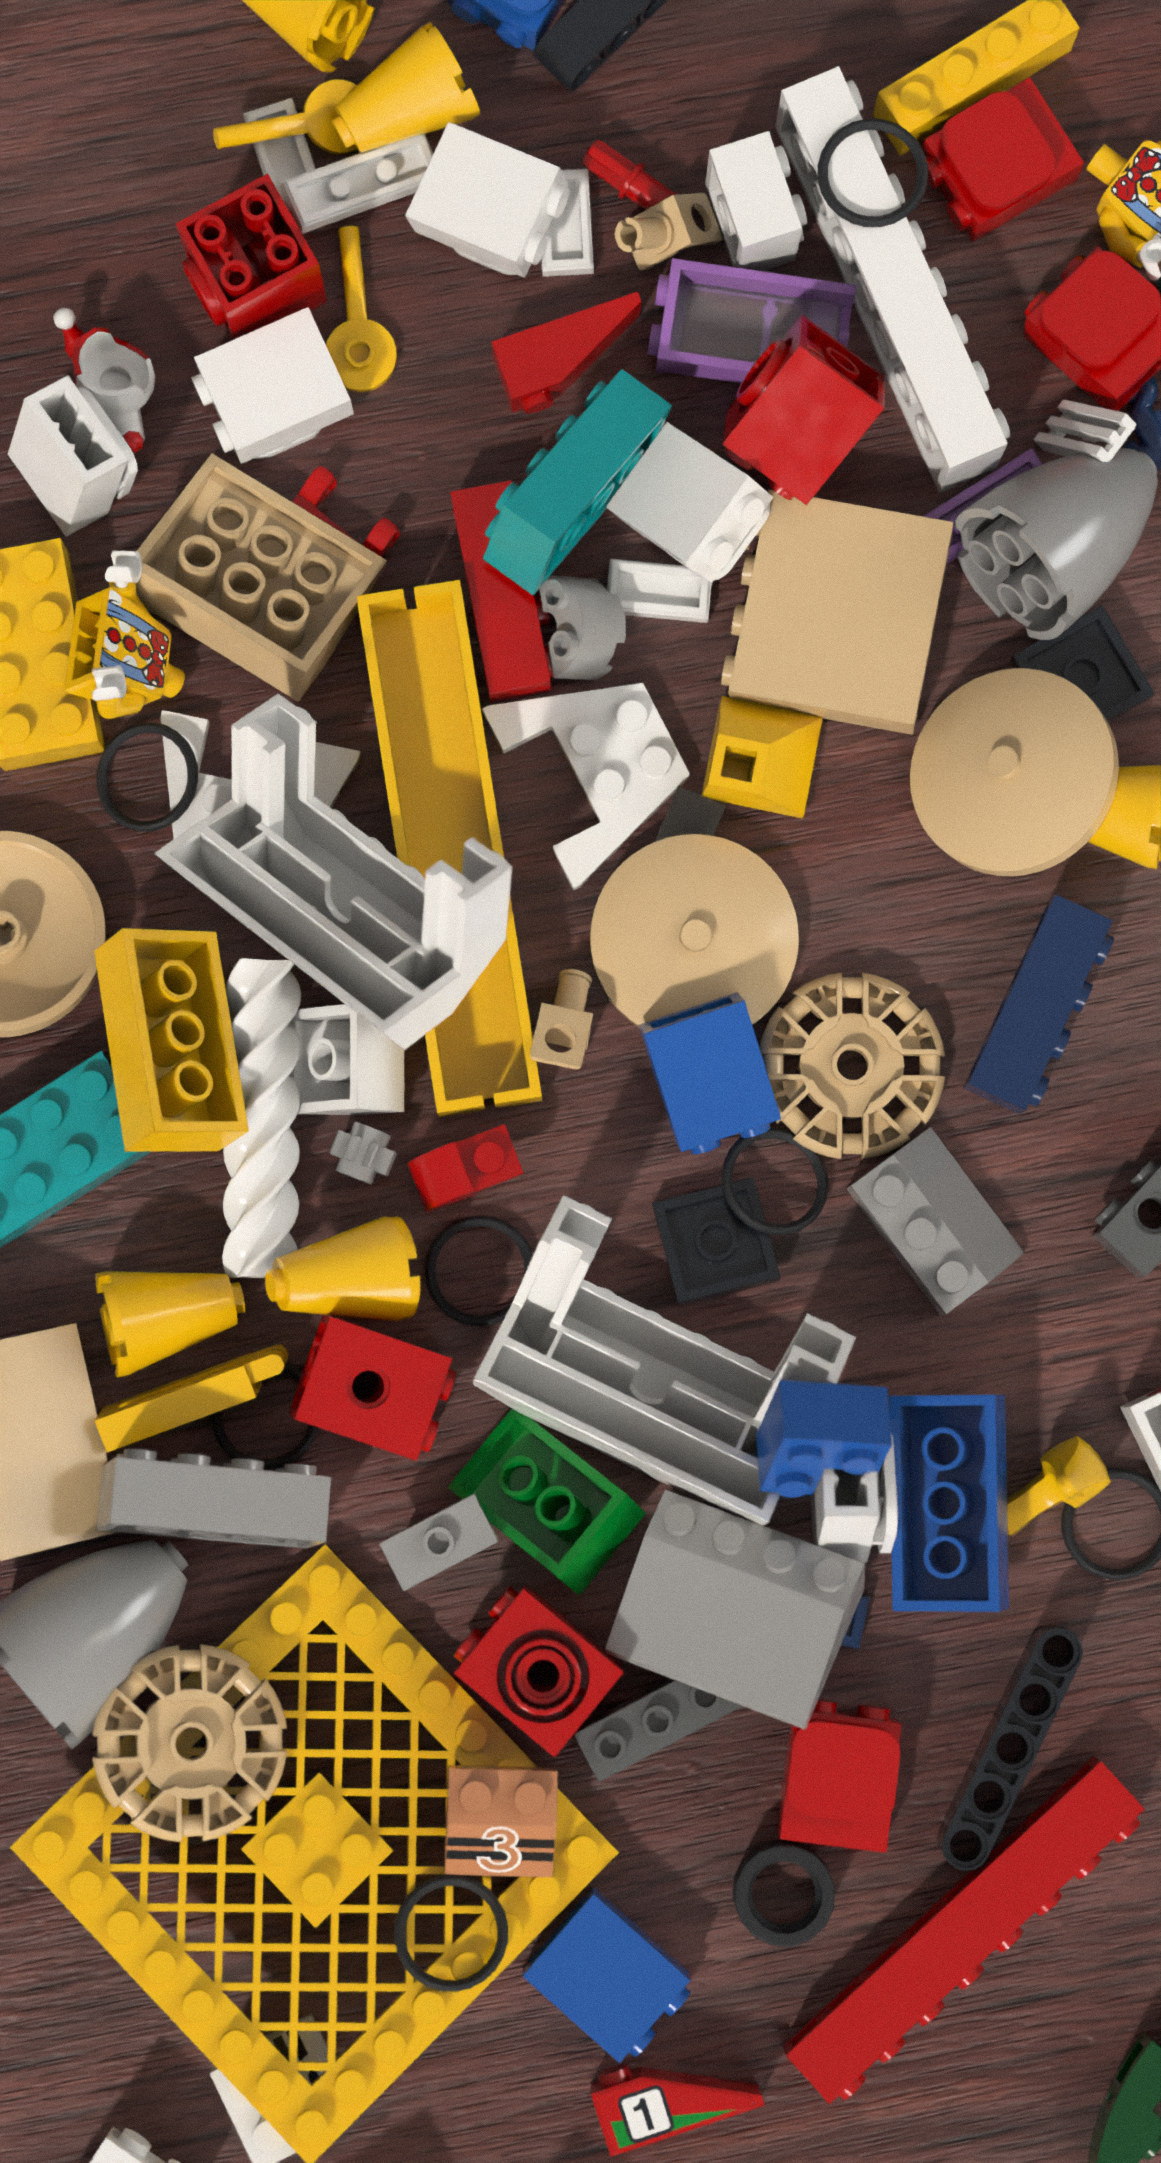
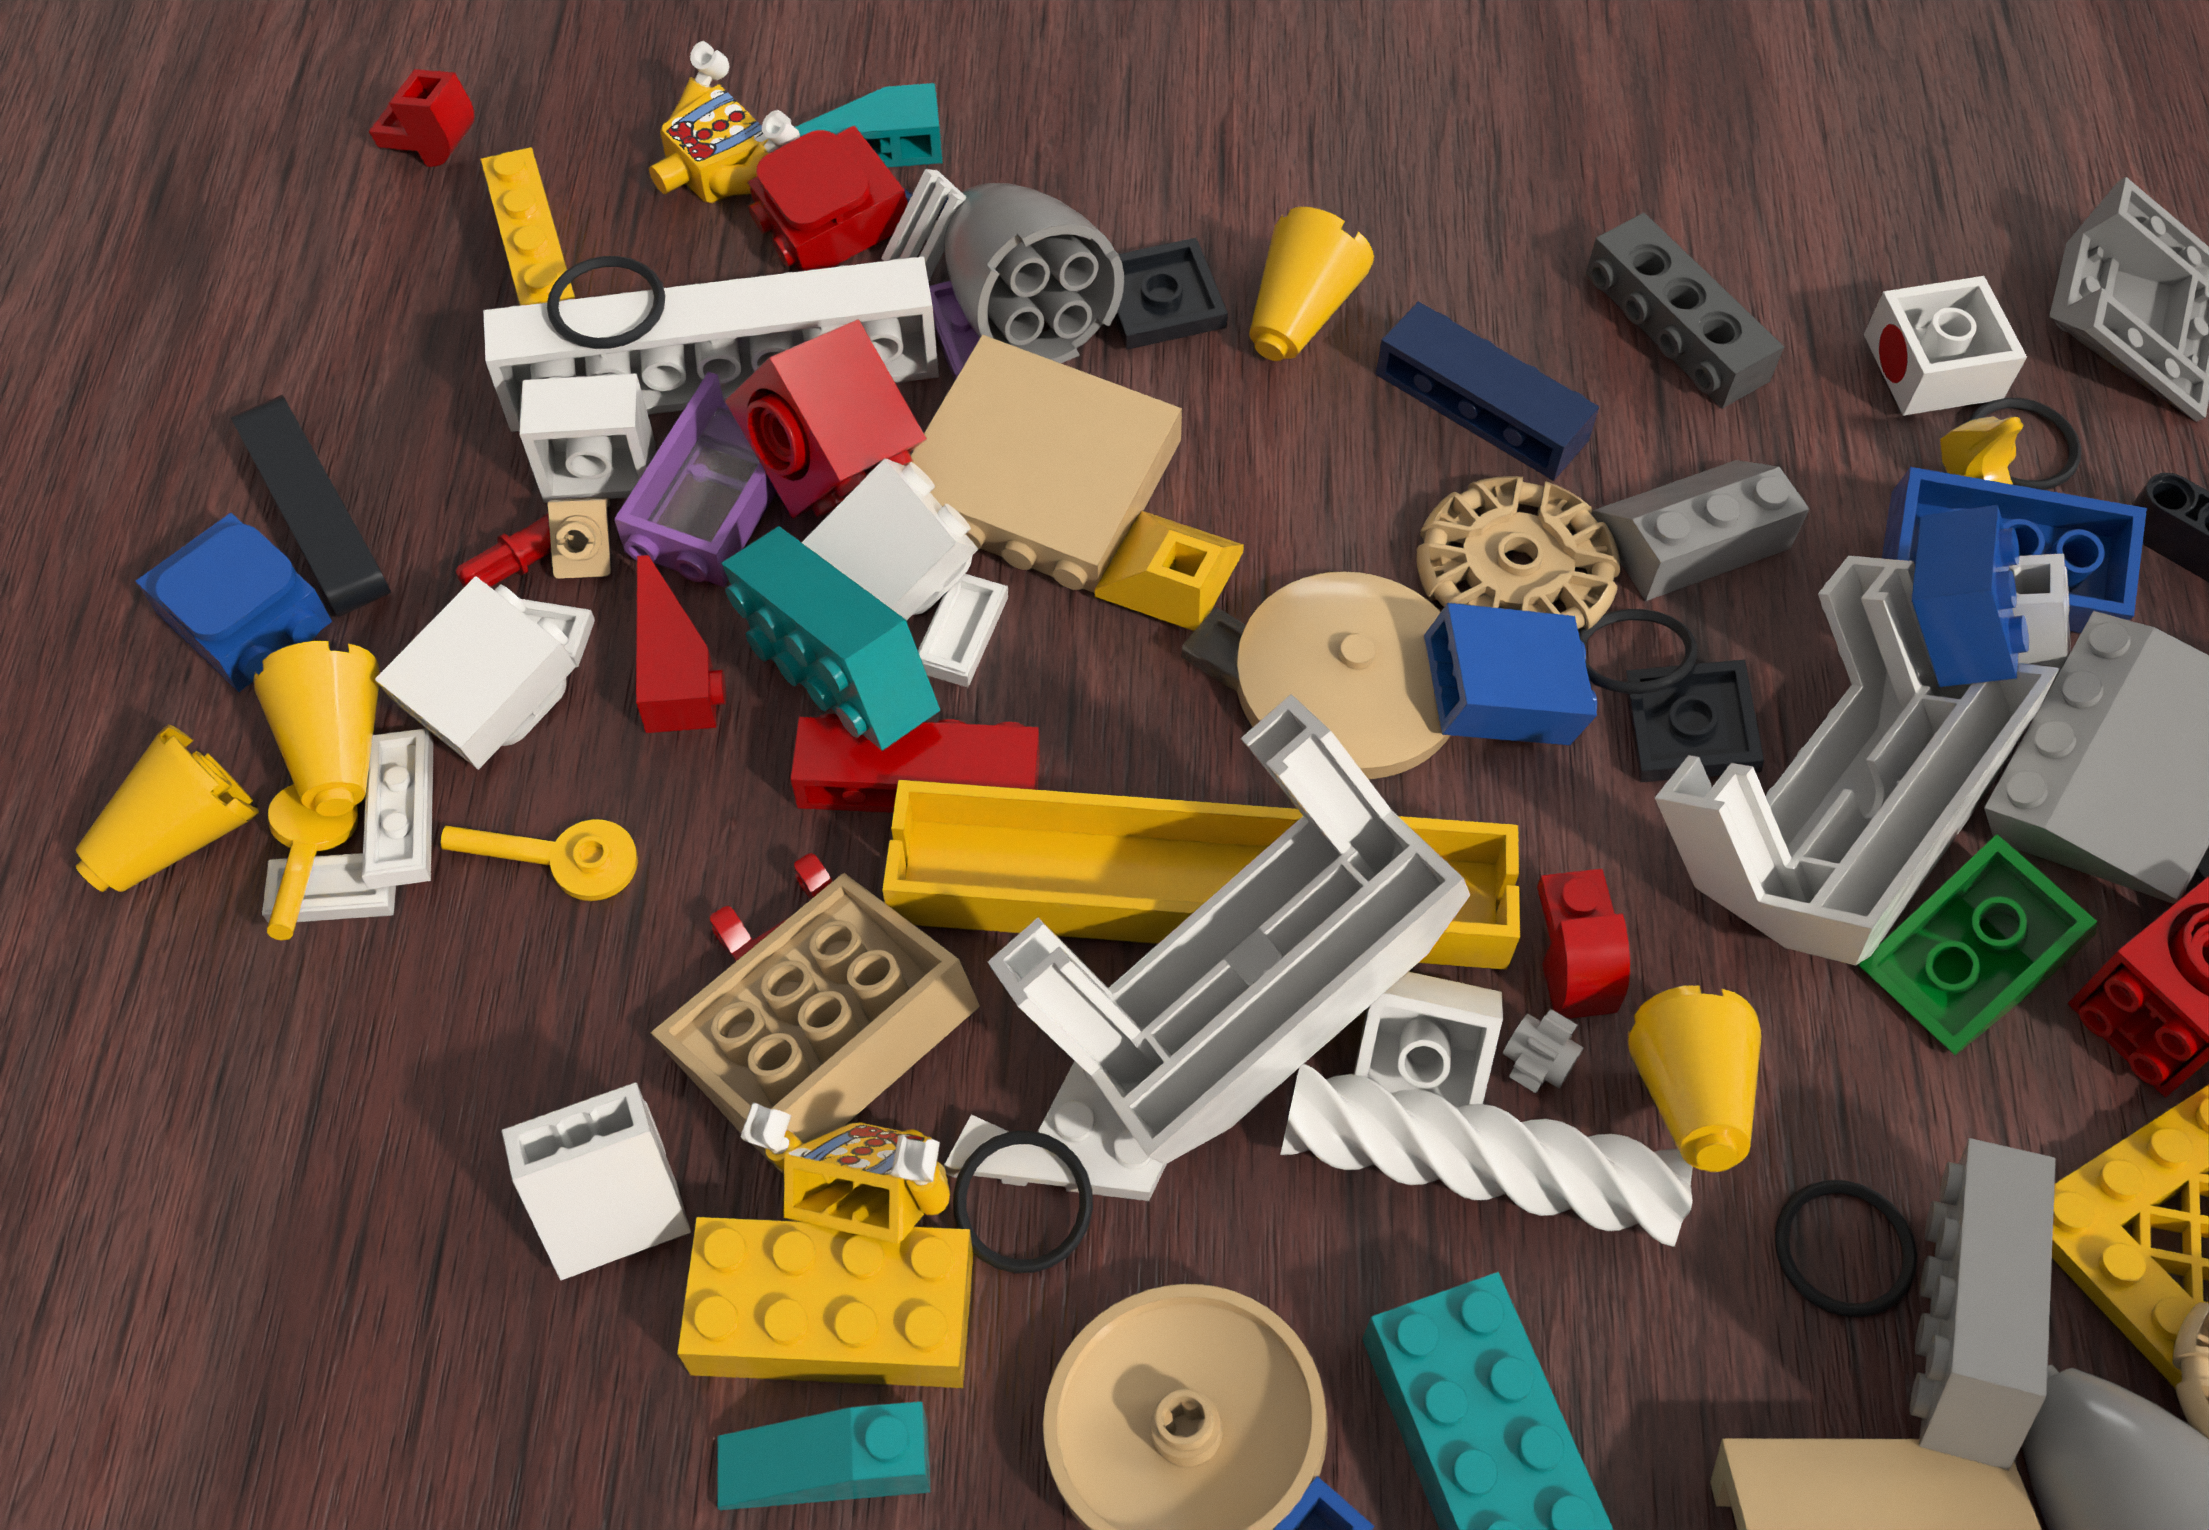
camera: 75 degrees left, 25 degrees down
(112, 371) = (481, 1126): white piece -> none
(163, 1313) = (1719, 1336): yellow cone -> none
(170, 1040) = (1377, 1222): yellow brick -> none
(188, 1398) = (1832, 1316): yellow hinge -> none
(249, 260) = (442, 918): red brick -> none
(272, 387) = (598, 939): white brick -> none
(405, 1392) = (1845, 1090): red brick -> none
(438, 1243) = (1692, 914): black tyre -> none
(438, 1542) = (2029, 1062): light grey brick -> none
(564, 1022) = (1431, 796): tan bracket -> none
(587, 626) = (985, 682): light grey cylinder -> none
(616, 754) = (1139, 703): white wing -> none
(1000, 159) = (632, 223): red brick -> none
(1014, 772) = (1250, 347): tan dish -> none

